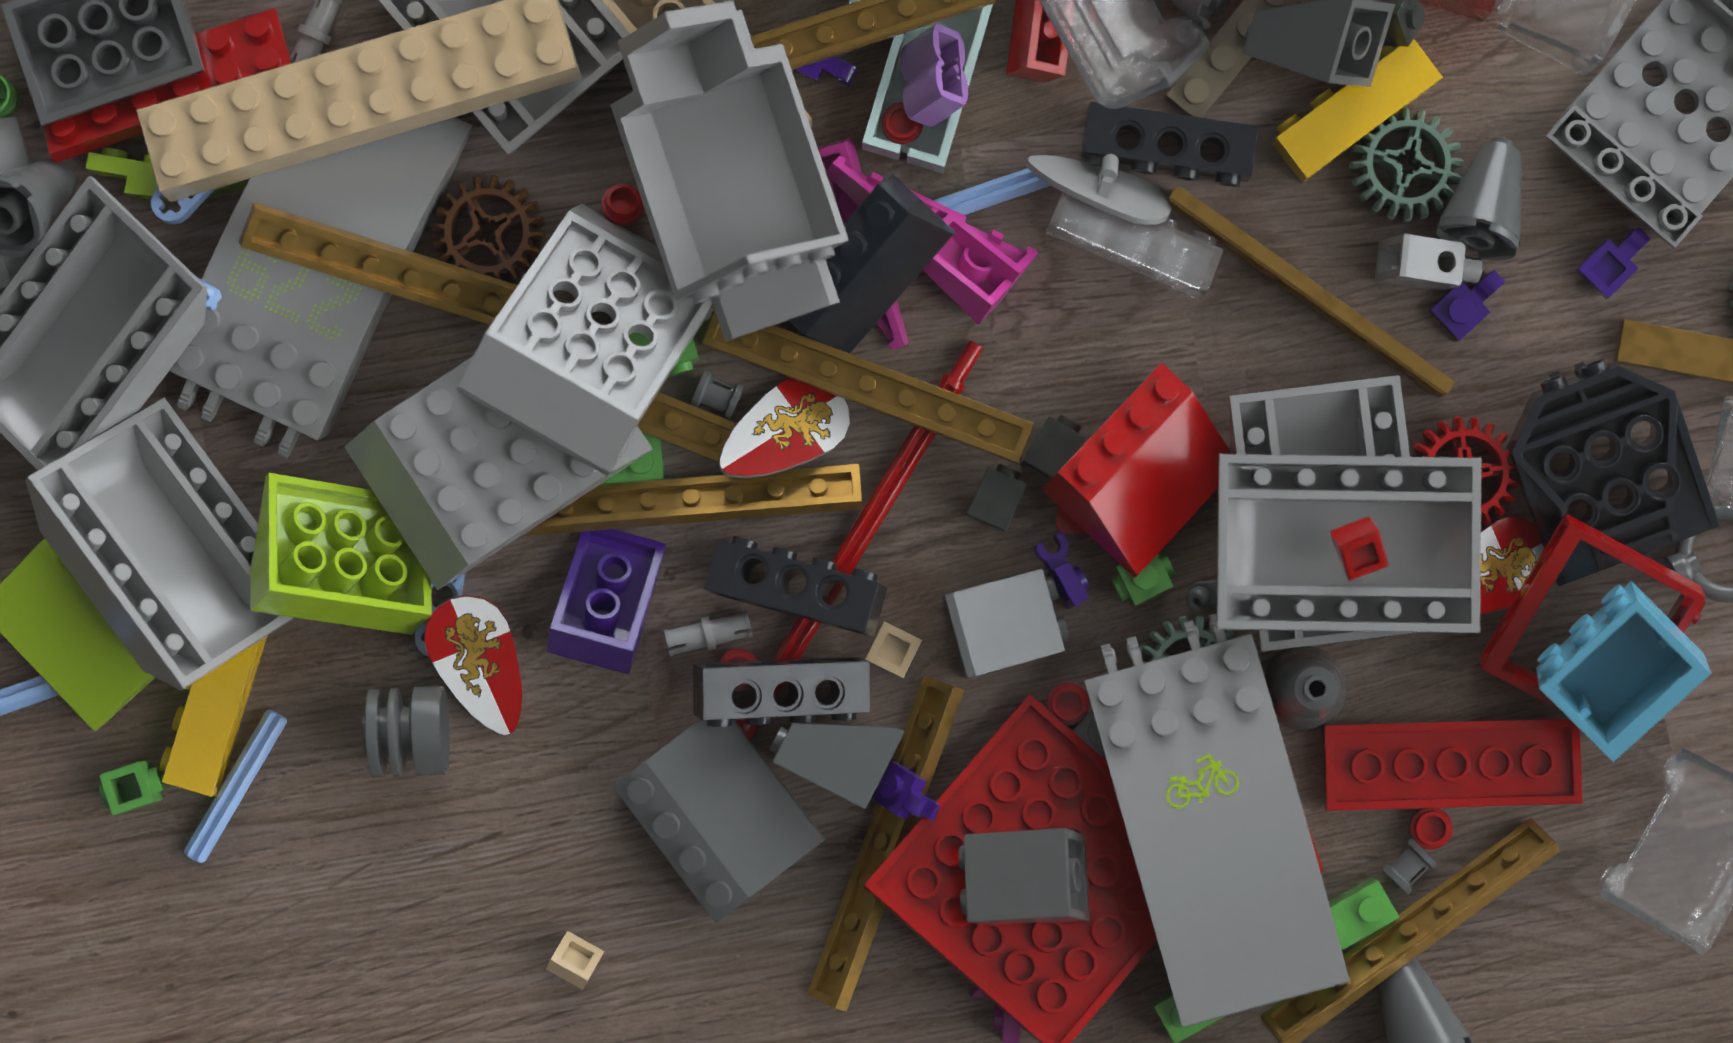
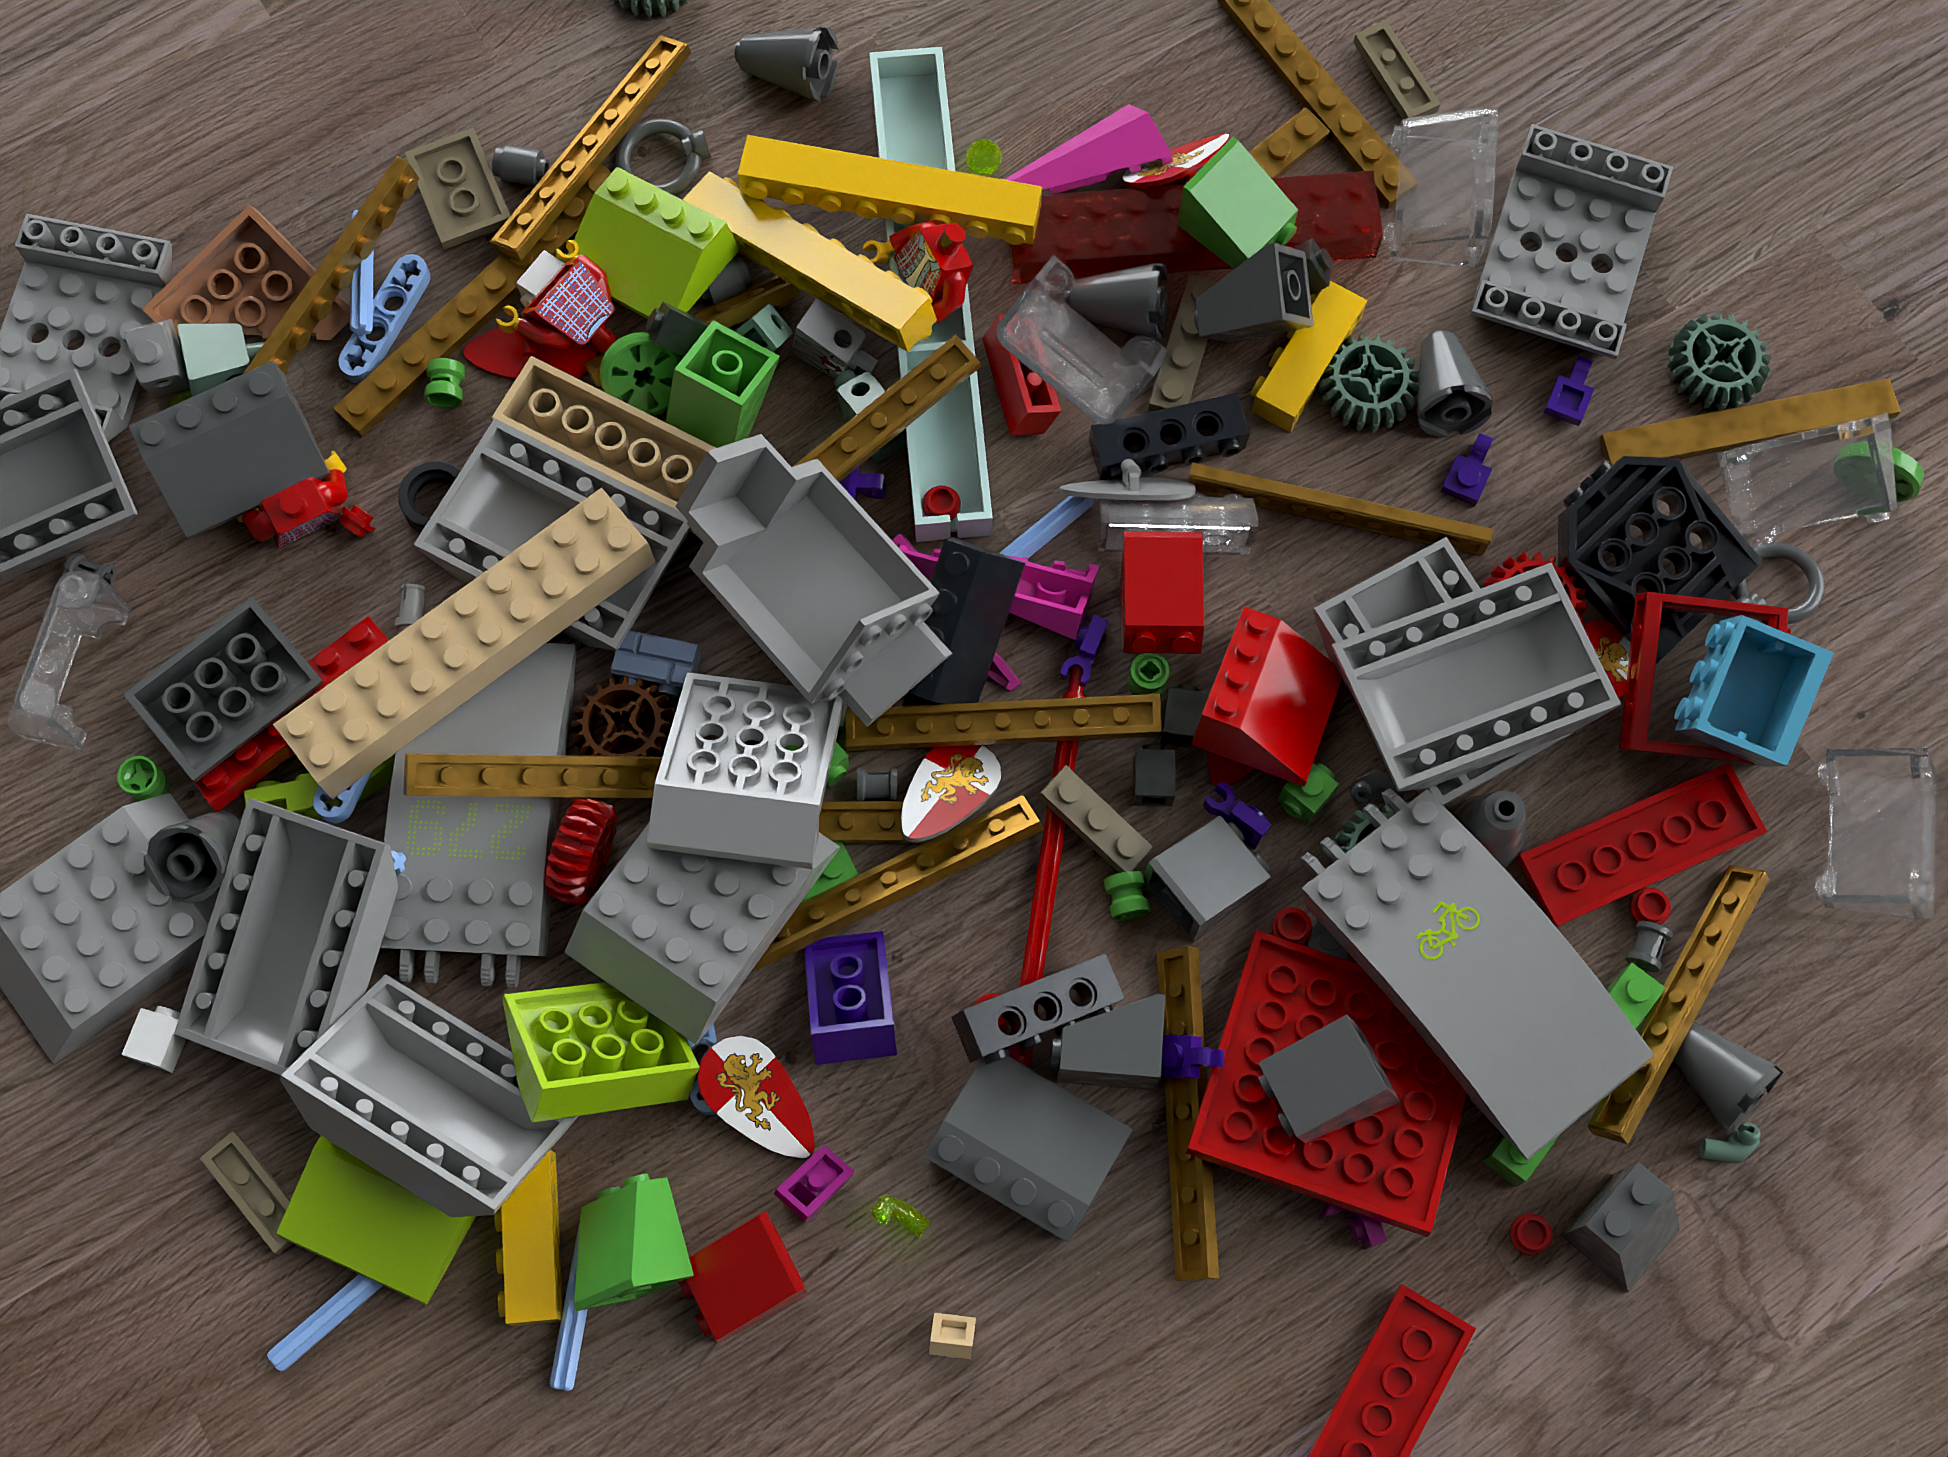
camera: 20 degrees left, 15 degrees down
(131, 787) = (478, 1342): bright green brick -> none
(302, 756) = (629, 1244): none -> bright green slope
(397, 351) = (581, 850): none -> red gear
(398, 829) = (742, 1279): none -> red slope
(407, 731) = (716, 1184): dark grey wheel -> none
(500, 767) = (814, 1184): none -> magenta slope
(545, 179) = (656, 661): none -> sand blue brick
(576, 826) = (904, 1213): none -> clear neon green arm
(622, 204) = (730, 660): red plate -> none
(708, 633) = (952, 992): light grey pin -> none
(730, 579) = (1075, 918): black brick -> none
(893, 649) = (1121, 940): tan plate -> none
(918, 520) = (1094, 821): none -> dark tan plate
(918, 608) = (1126, 895): none -> bright green wheel
(934, 75) = (952, 450): medium lavender brick -> none
(991, 332) = (1089, 642): none -> dark purple plate
(1034, 398) = (1148, 682): none -> bright green wheel
(1083, 317) = (1162, 592): none -> red slope
(1359, 548) = (1487, 673): red slope -> none
(1425, 263) = (1420, 448): light grey torso -> none

